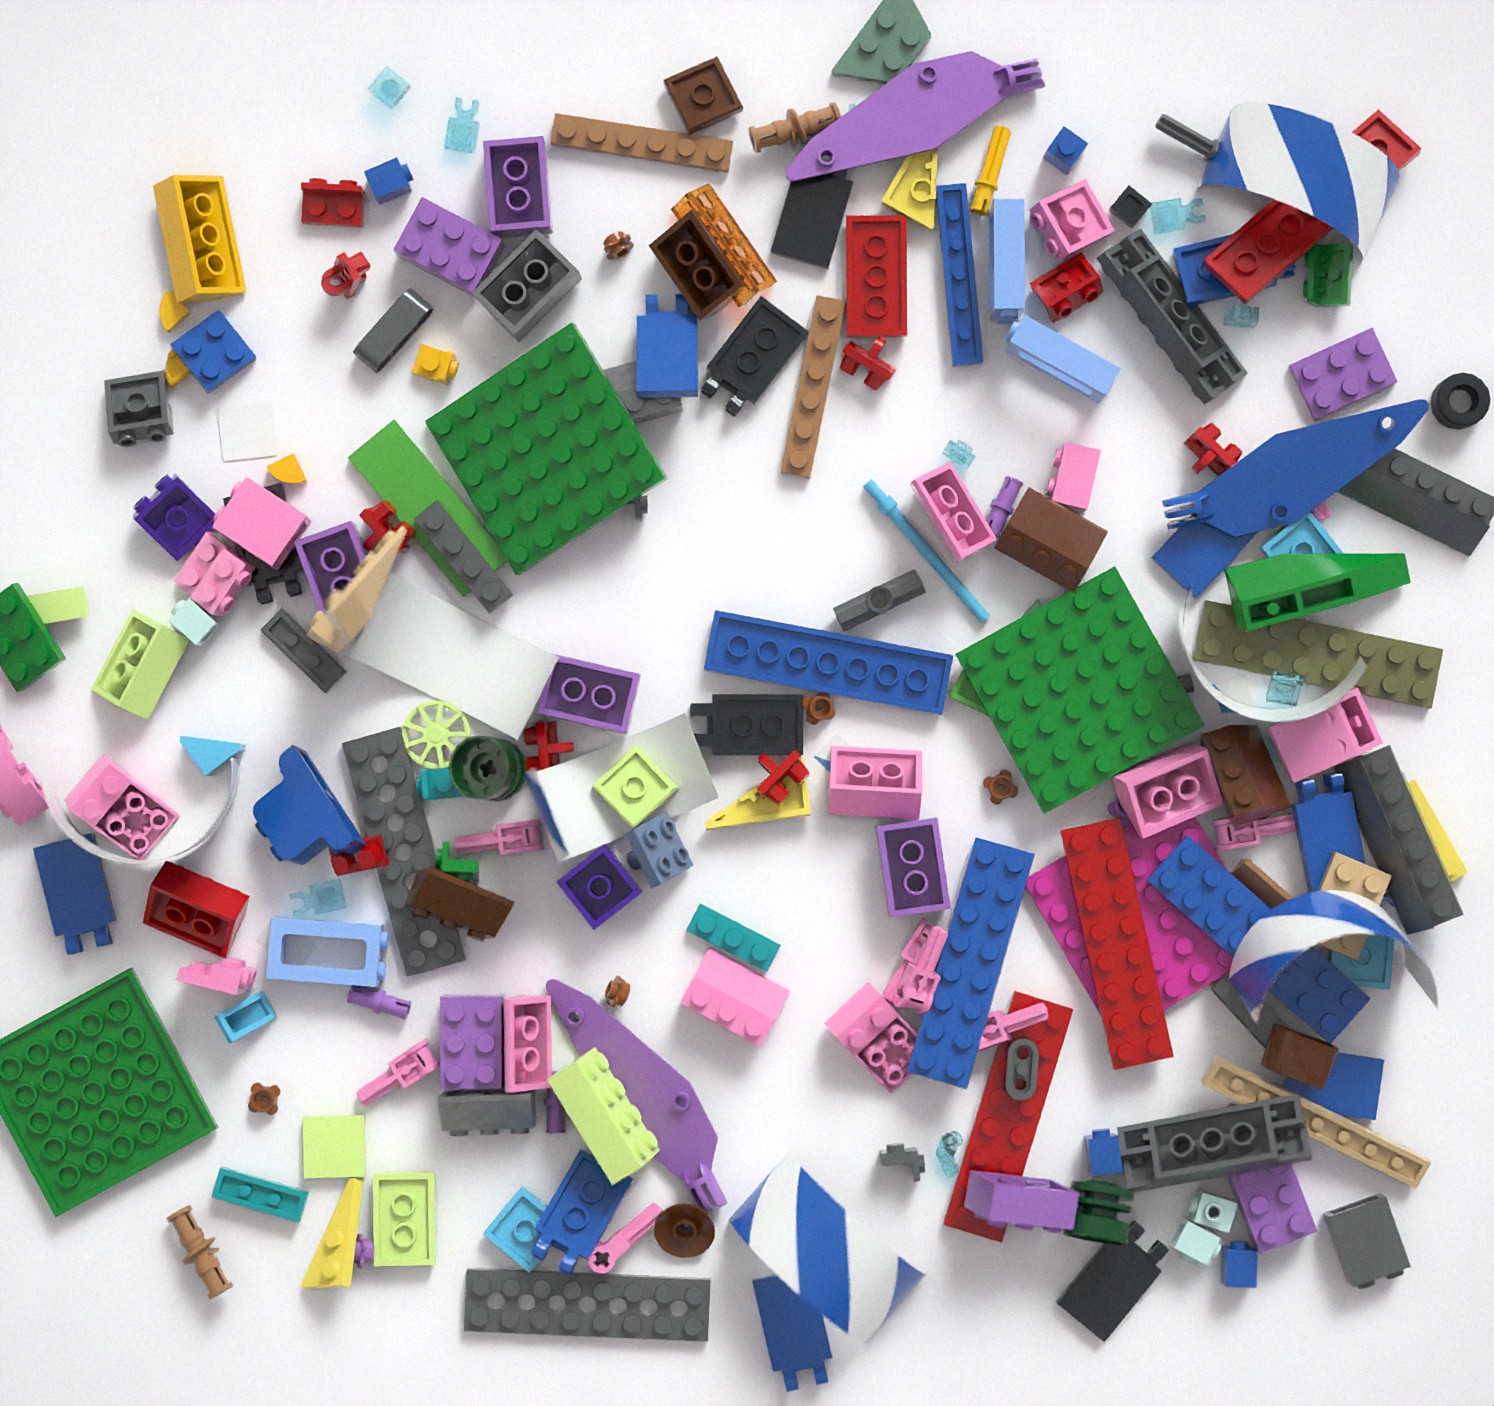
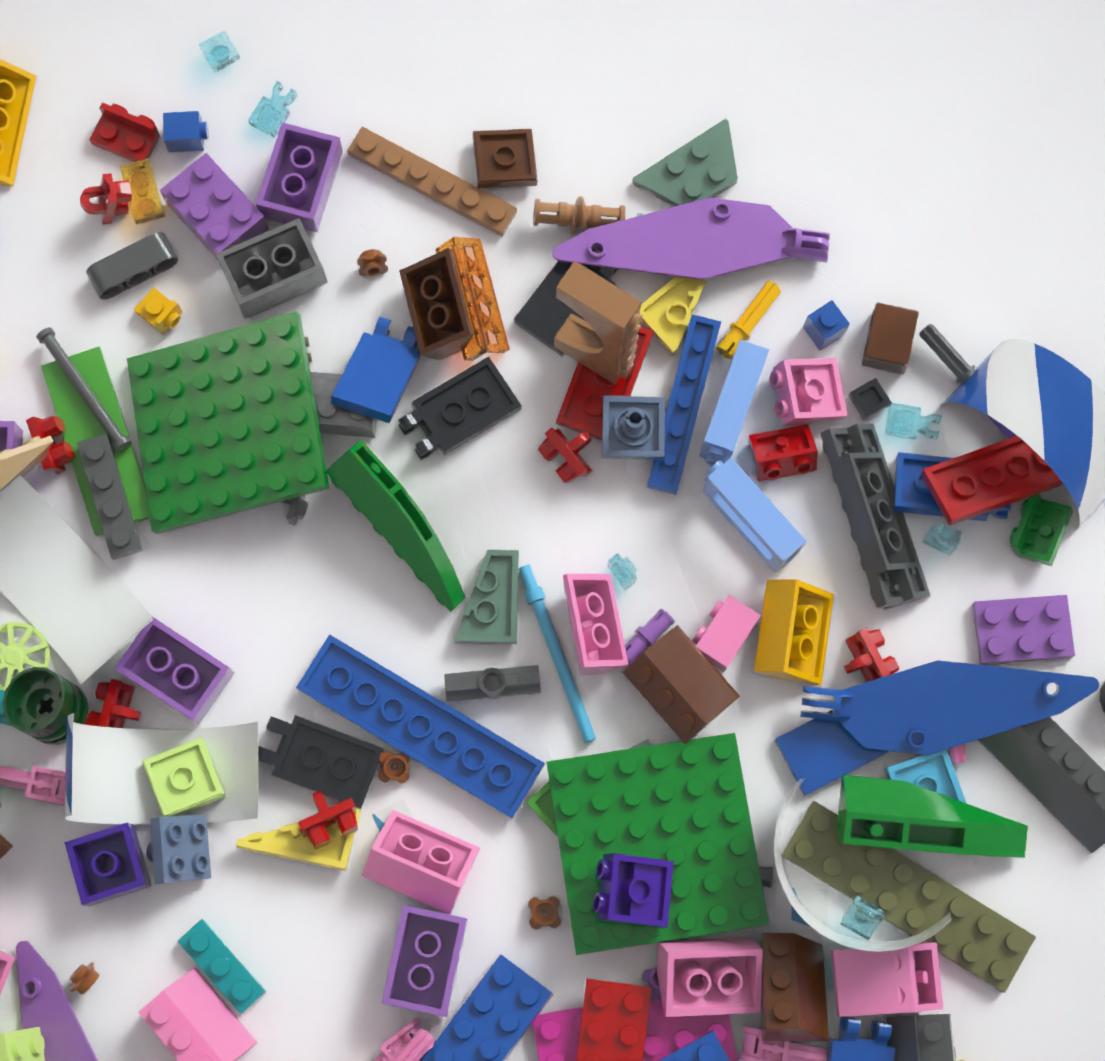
camera: 15 degrees right, 10 degrees down
(383, 264) = (145, 195): none -> clear yellow plate
(397, 465) = (47, 337): none -> dark grey bar
(737, 482) = (397, 519): none -> green wedge
(813, 386) = (506, 459): medium nougat plate -> none
(852, 526) = (494, 602): none -> sand green wing
(863, 239) = (611, 325): none -> medium nougat arch
(922, 316) = (633, 427): none -> sand blue plate
(1076, 739) = (633, 890): none -> dark purple plate
(1129, 141) = (890, 338): none -> reddish brown piece
(1135, 453) = (794, 631): none -> yellow slope

